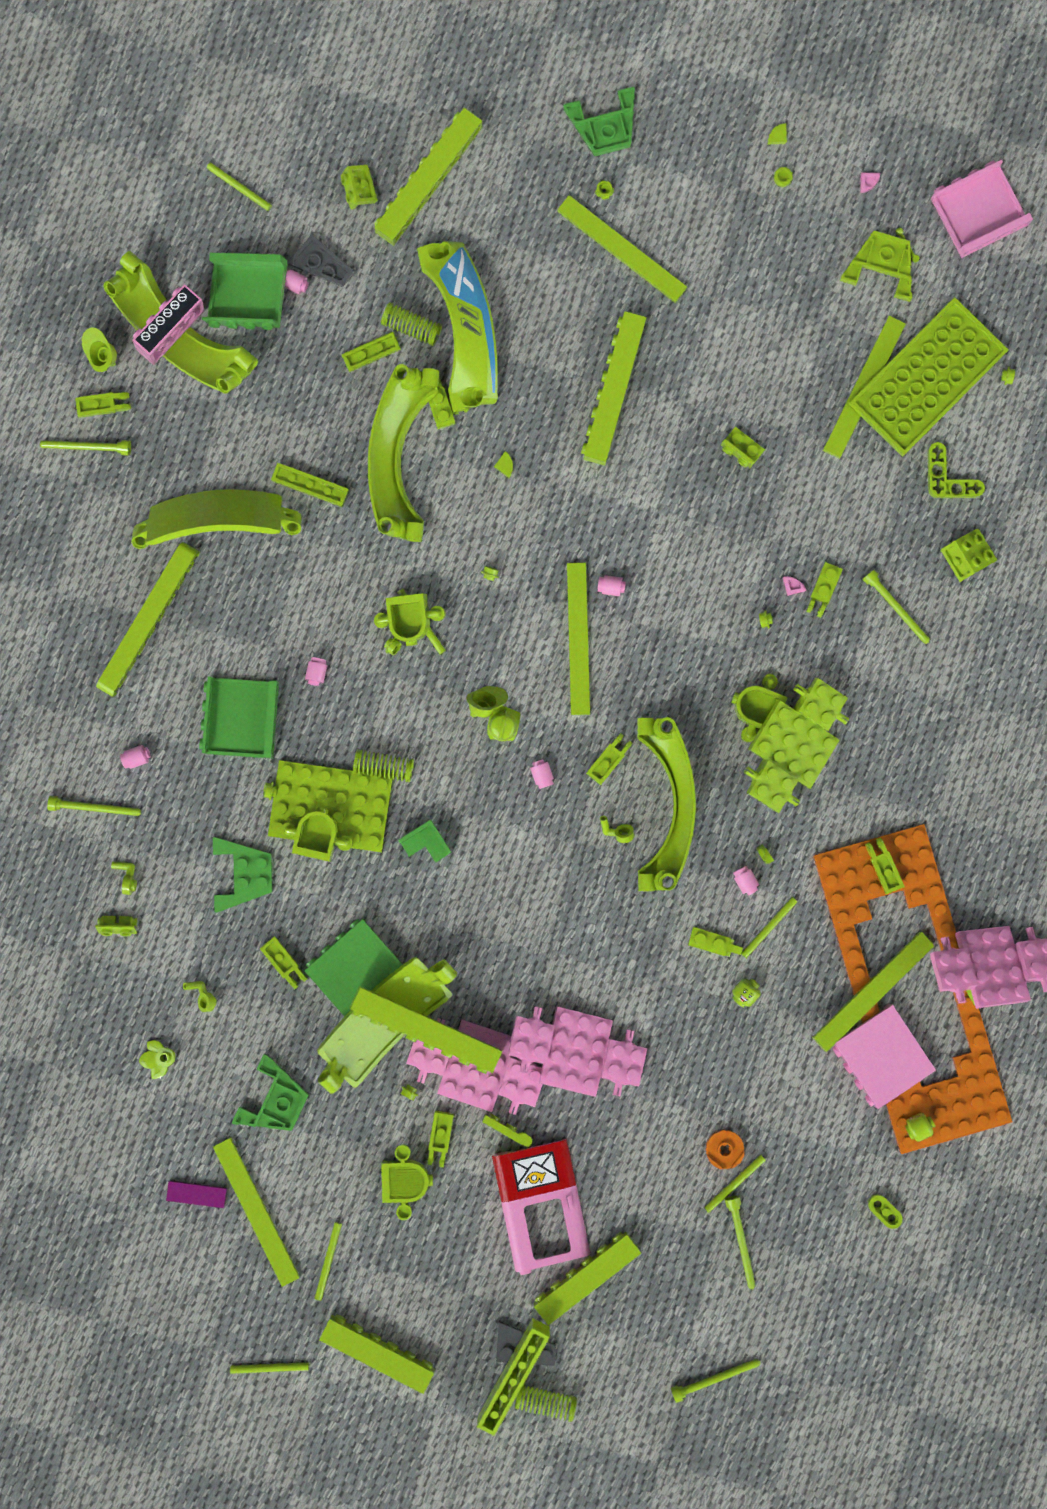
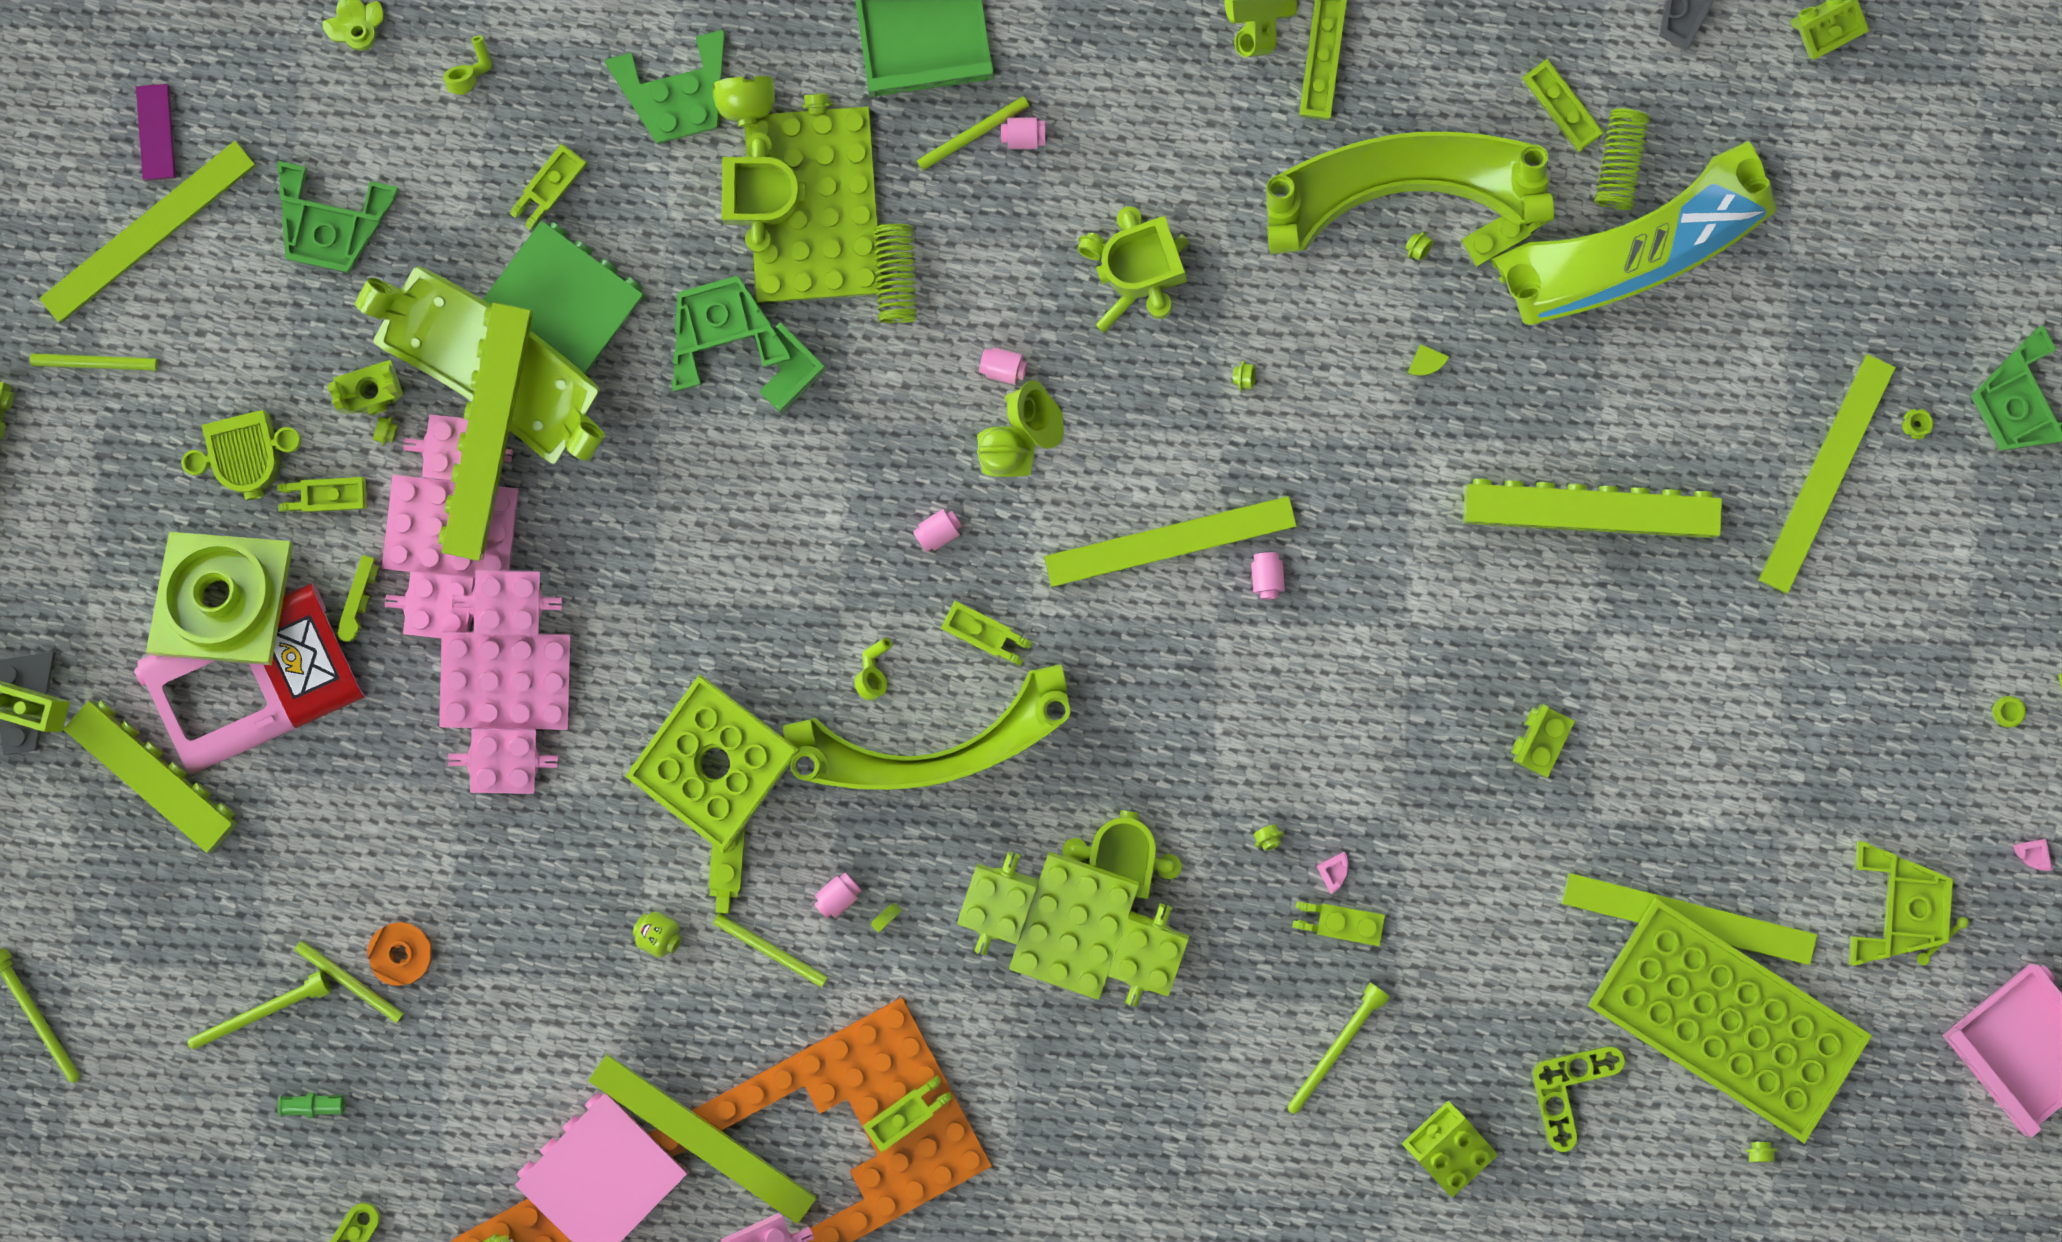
camera: 80 degrees right, 0 degrees up
(258, 832) = (744, 99): none -> lime cylinder
(308, 701) = (972, 133): none -> lime bar
(379, 1108) = (349, 389): none -> lime piece
(385, 877) = (715, 317): none -> bright green wing
(428, 176) = (1872, 133): lime brick -> none
(435, 454) = (1419, 246): none -> lime plate
(452, 714) = (1003, 365): none -> bright pink brick
(509, 1201) = (241, 627): none -> lime piece
(646, 961) = (673, 769): none -> lime piece
(804, 1221) = (311, 1105): none -> bright green pin

